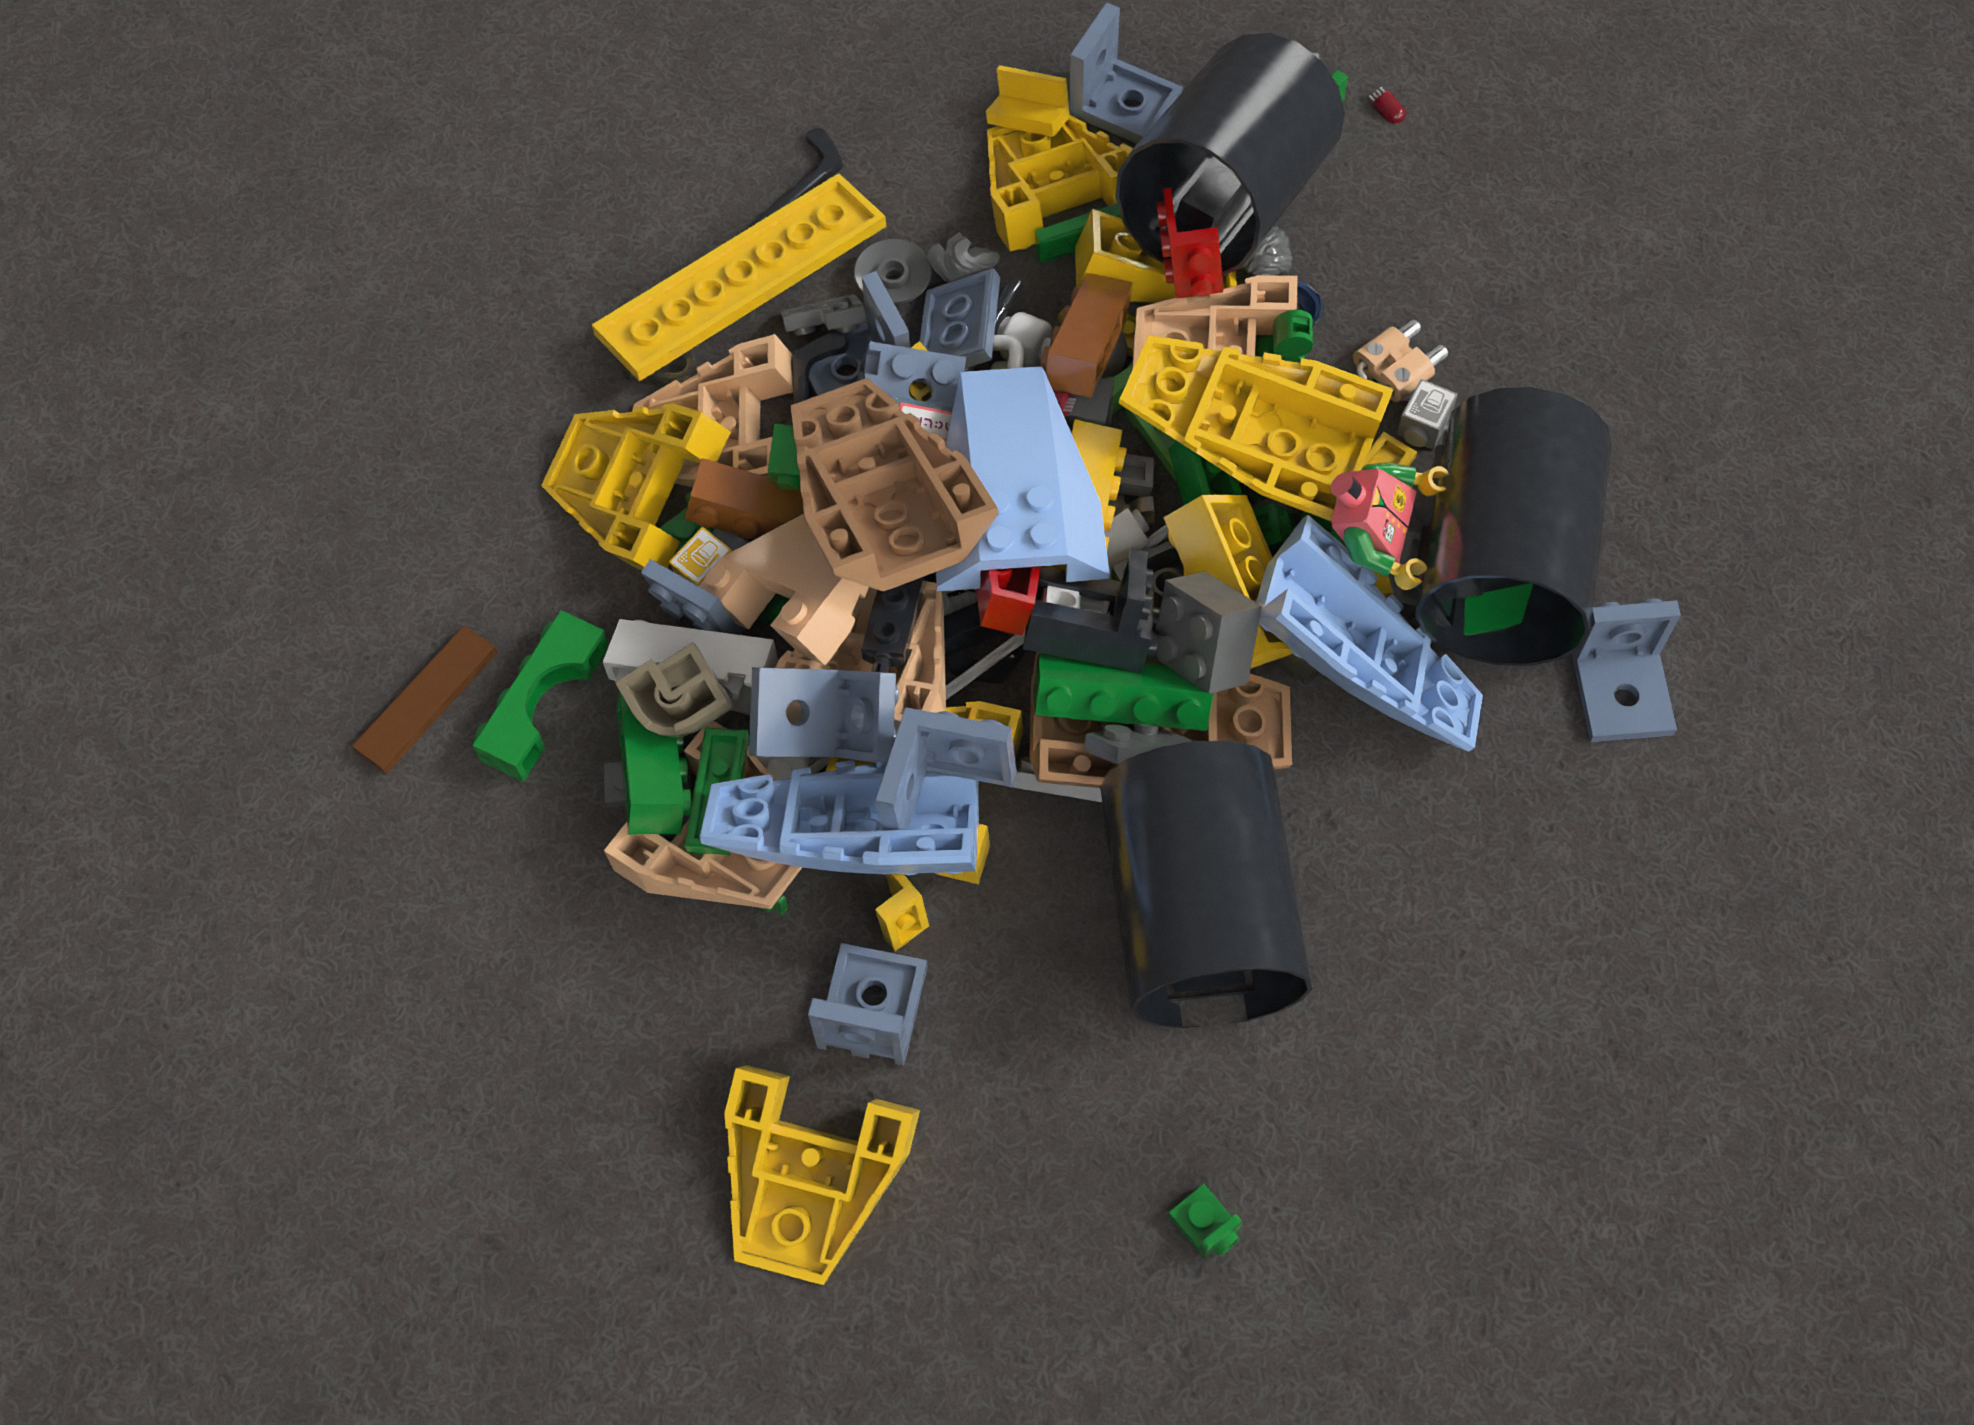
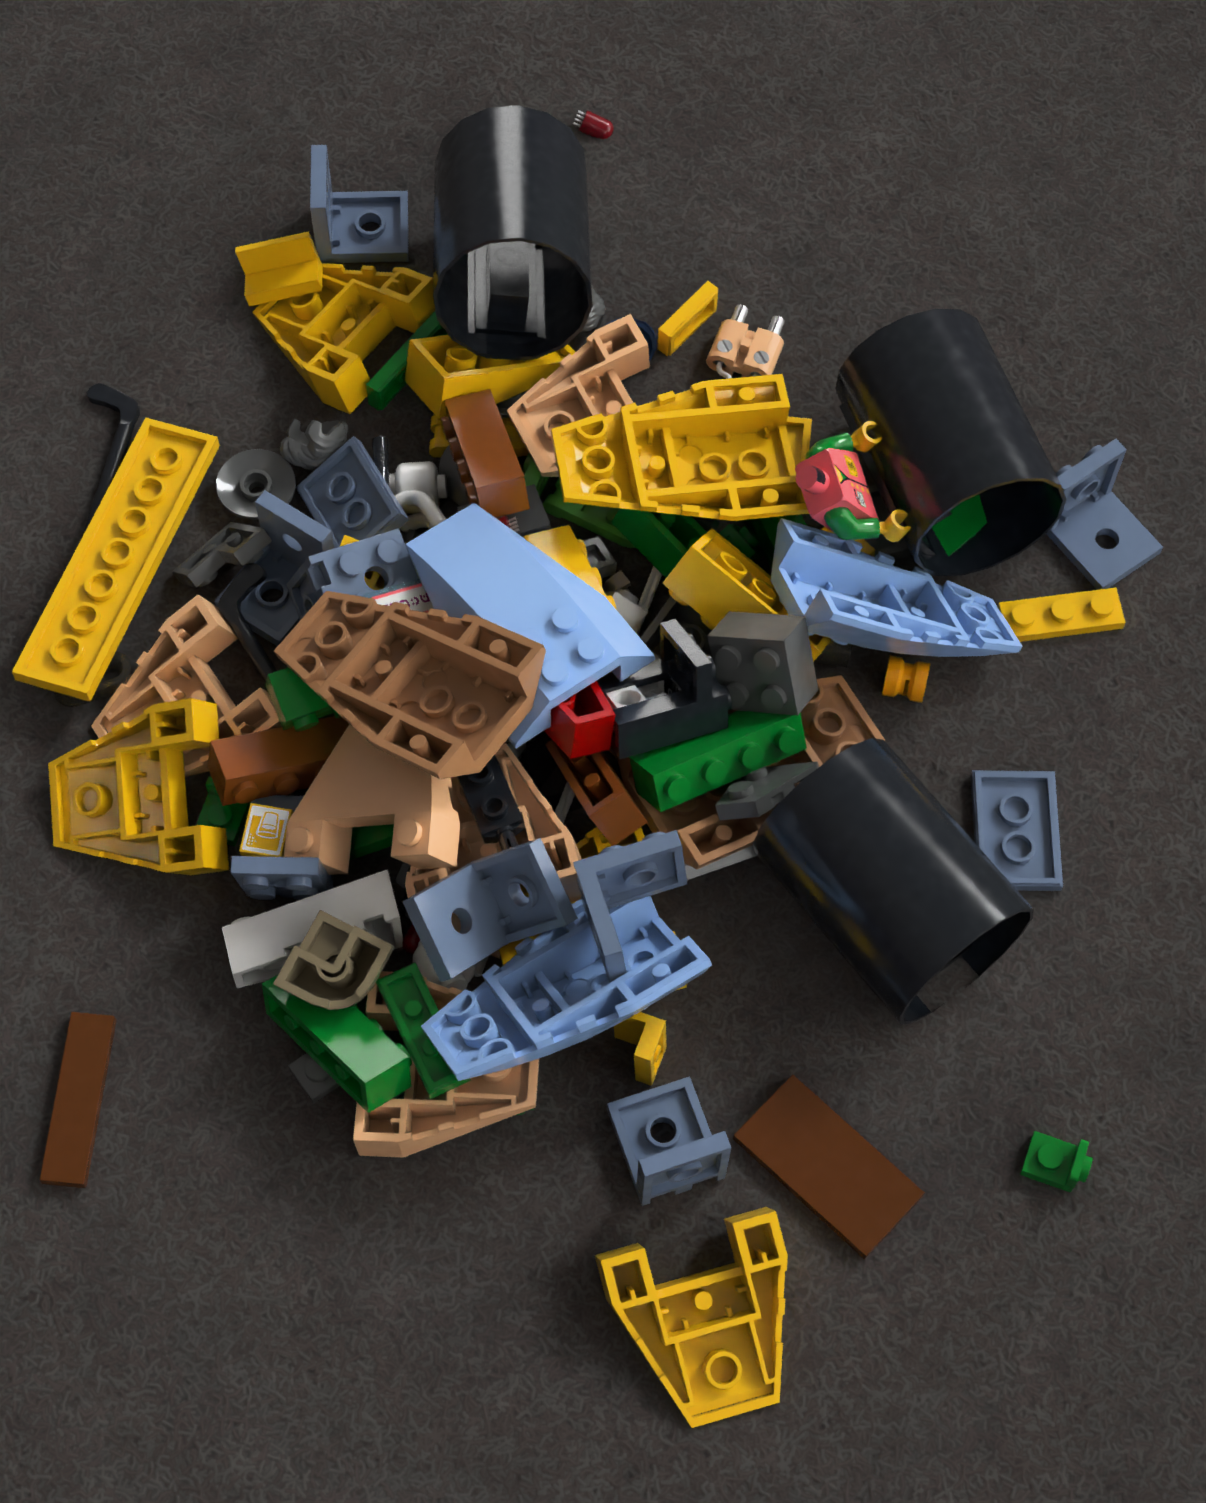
camera: 35 degrees left, 0 degrees up
(565, 652) = (188, 1088): green arch -> none
(996, 674) = (600, 793): none -> dark orange brick
(1000, 1109) = (828, 1166): none -> reddish brown tile
(1193, 254) = (535, 347): red bracket -> none
(1290, 338) = (654, 374): green leg -> none
(1350, 721) = (905, 679): none -> light orange wheel
(1359, 310) = (687, 319): none -> yellow tile
(1367, 910) = (1019, 826): none -> sand blue tile
(1426, 414) = (803, 381): light grey brick -> none
(1539, 742) = (1064, 614): none -> yellow plate

